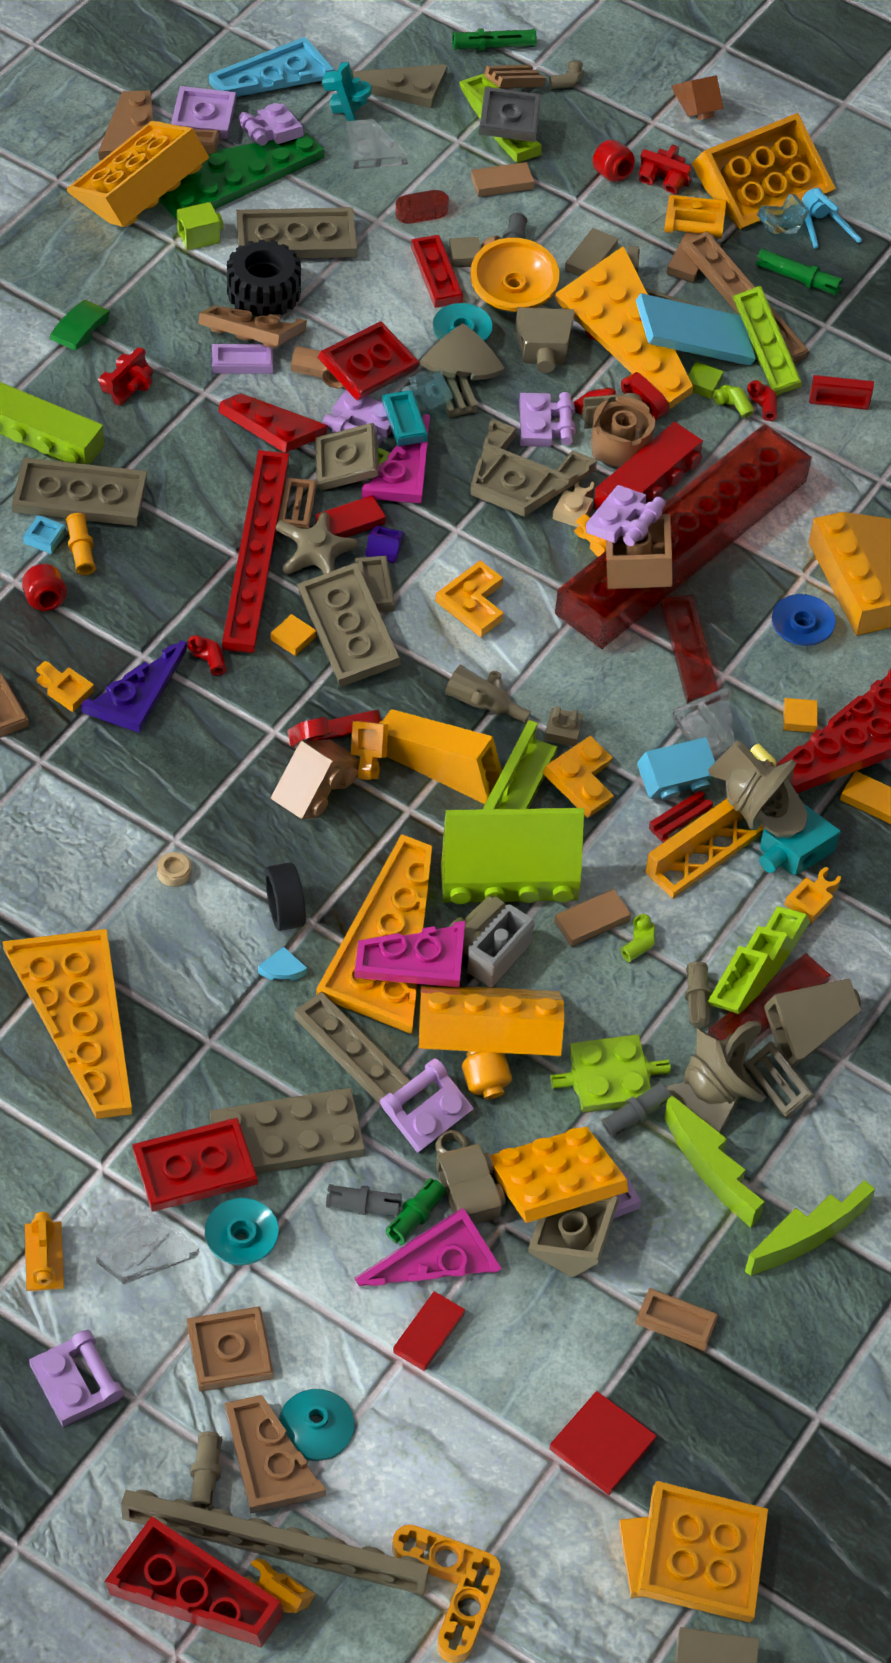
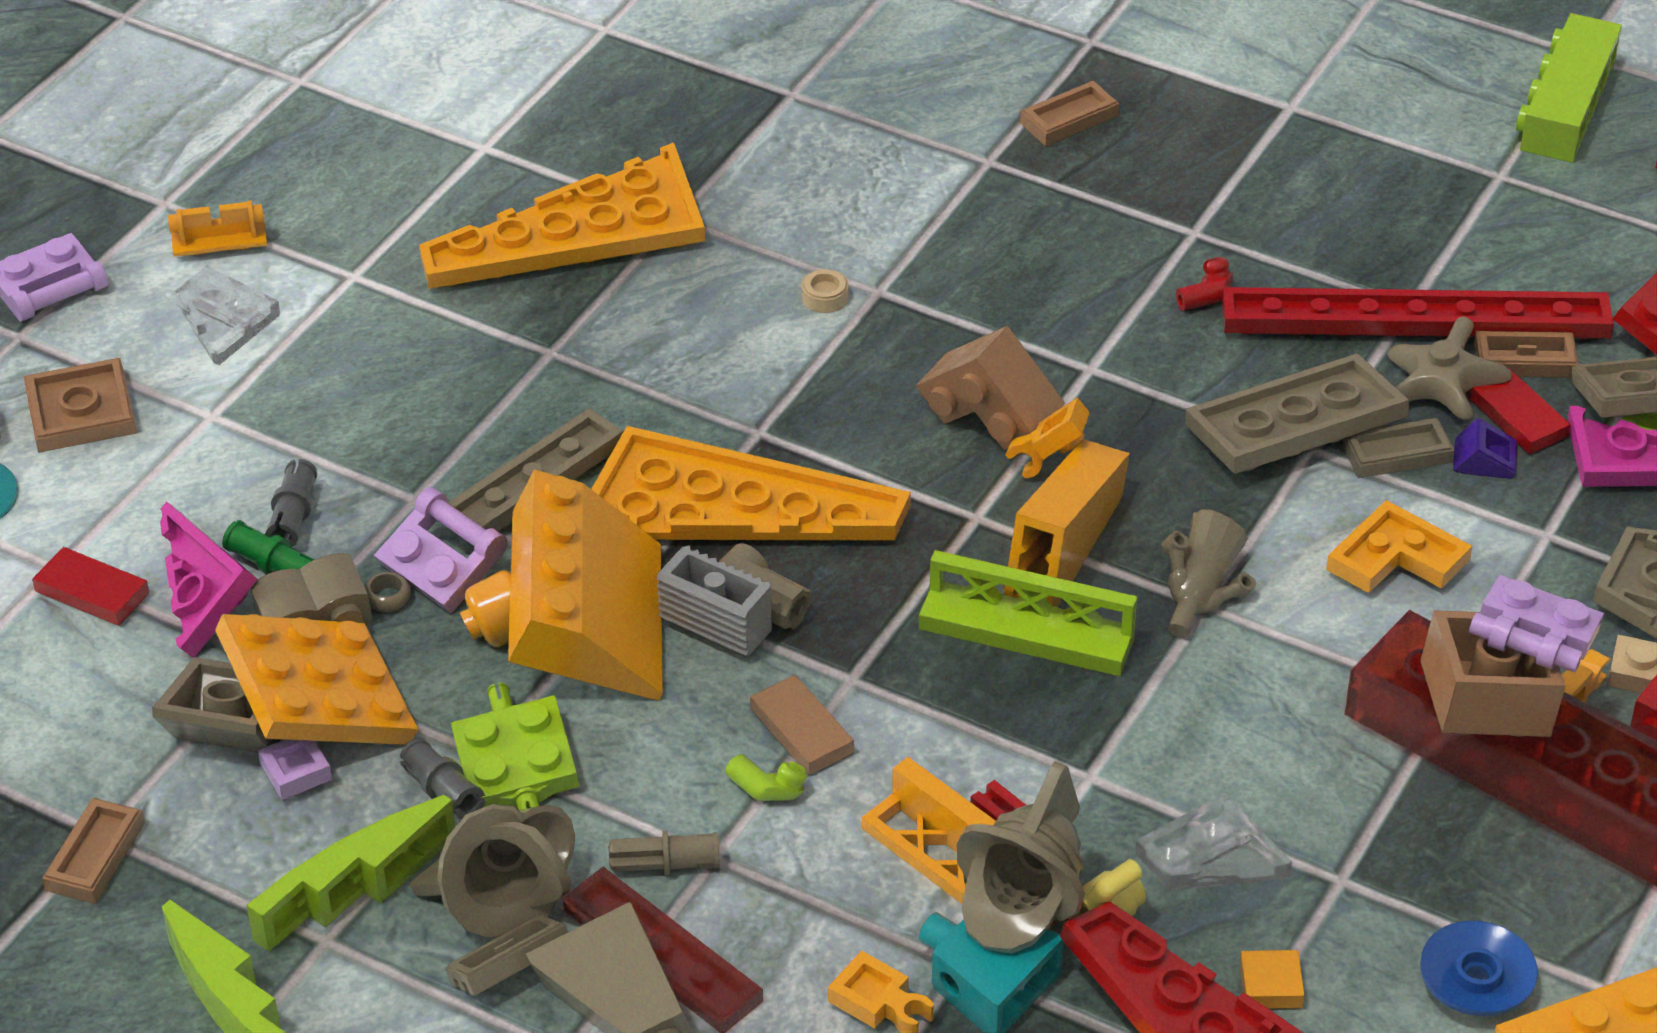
camera: 90 degrees right, 10 degrees down
(44, 534) = (1380, 120): medium azure tile -> none
(44, 587) = (1272, 118): red head -> none
(66, 688) = (1108, 160): light orange plate -> none
(71, 488) = (1464, 138): dark tan plate -> none
(80, 544) = (1367, 147): light orange pin -> none
(137, 693) = (1121, 225): dark purple wing -> none
(194, 1164) = (334, 331): red tile -> none
(236, 1218) = (240, 388): teal dish -> none
(282, 966) = (674, 403): medium azure tile -> none
(285, 896) = (755, 350): black tyre -> none
(293, 635) = (1267, 364): light orange tile -> none
(298, 1129) = (403, 429): dark tan plate -> none
(326, 729) = (1070, 381): red beam -> none
(416, 958) = (678, 505): dark pink wing -> none
(512, 855) = (859, 594): lime slope -> none
(563, 726) = (1170, 673): dark tan tile -> none
(575, 775) = (1067, 682): light orange plate -> none
(677, 769) = (1110, 807): medium azure brick -> none
(689, 647) = (1382, 827): clear red tile -> none
(759, 961) = (719, 915): lime slope -> none

